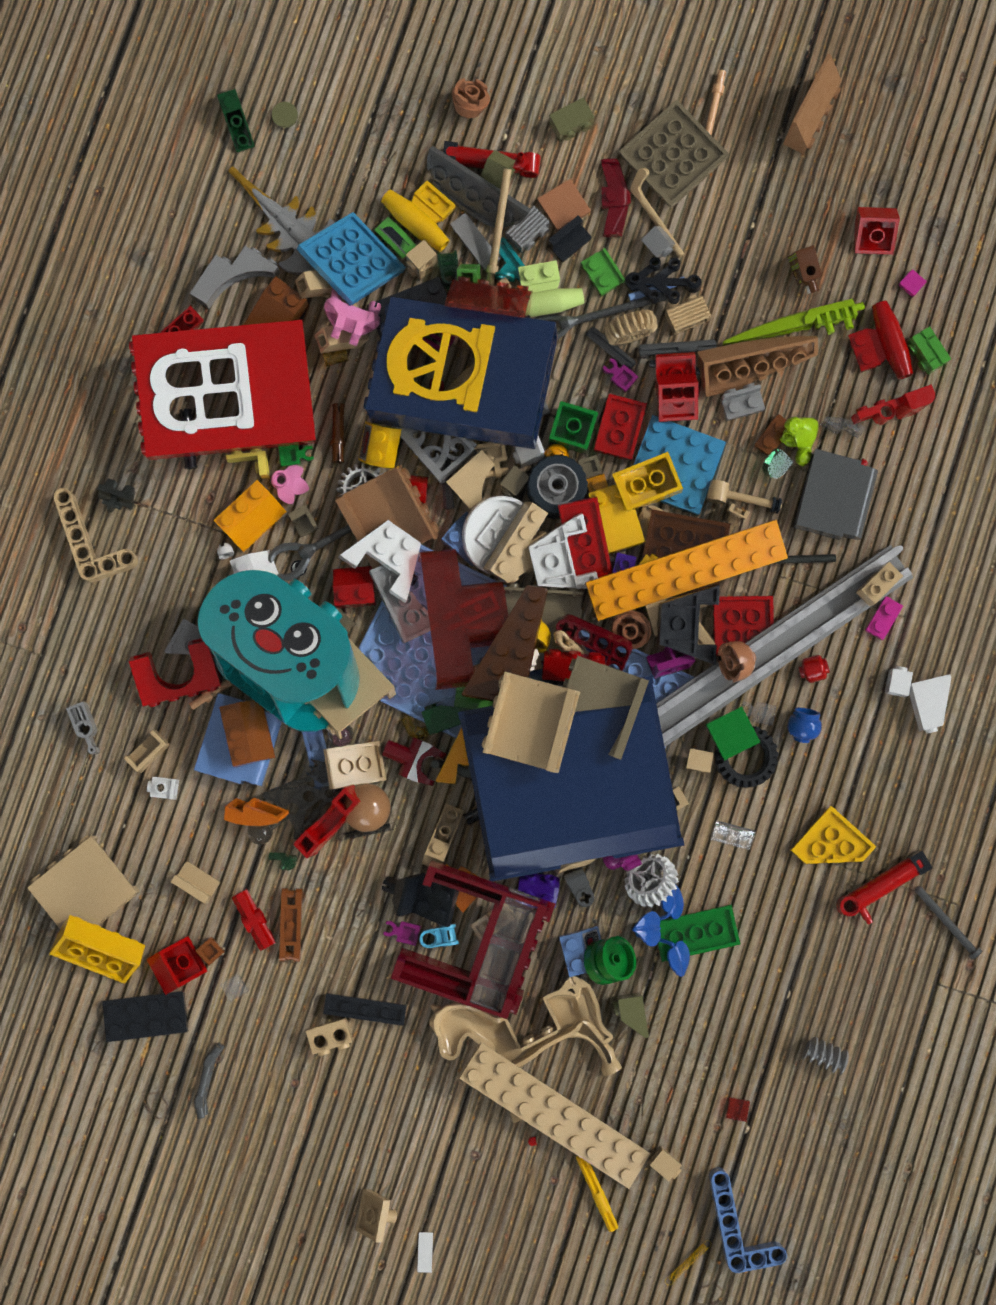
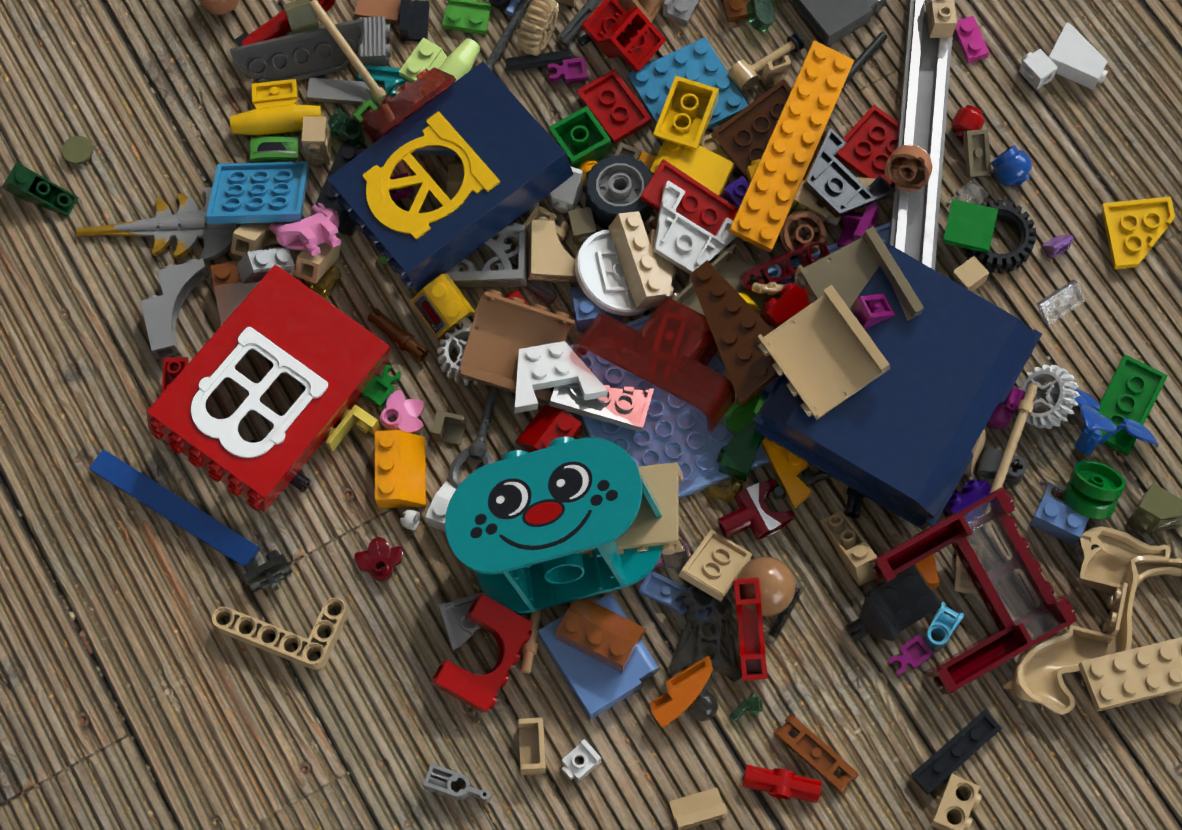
camera: 45 degrees left, 15 degrees down
(107, 401) = (174, 508): none -> blue tile
(186, 552) = (377, 556): none -> dark red plate
(301, 310) = (258, 263): none -> light grey brick
(593, 727) = (871, 310): none -> magenta slope
(628, 873) = (1025, 408): none -> tan bar
(775, 799) = (1057, 245): none -> medium lavender slope
(795, 693) = (977, 153): none -> dark tan plate

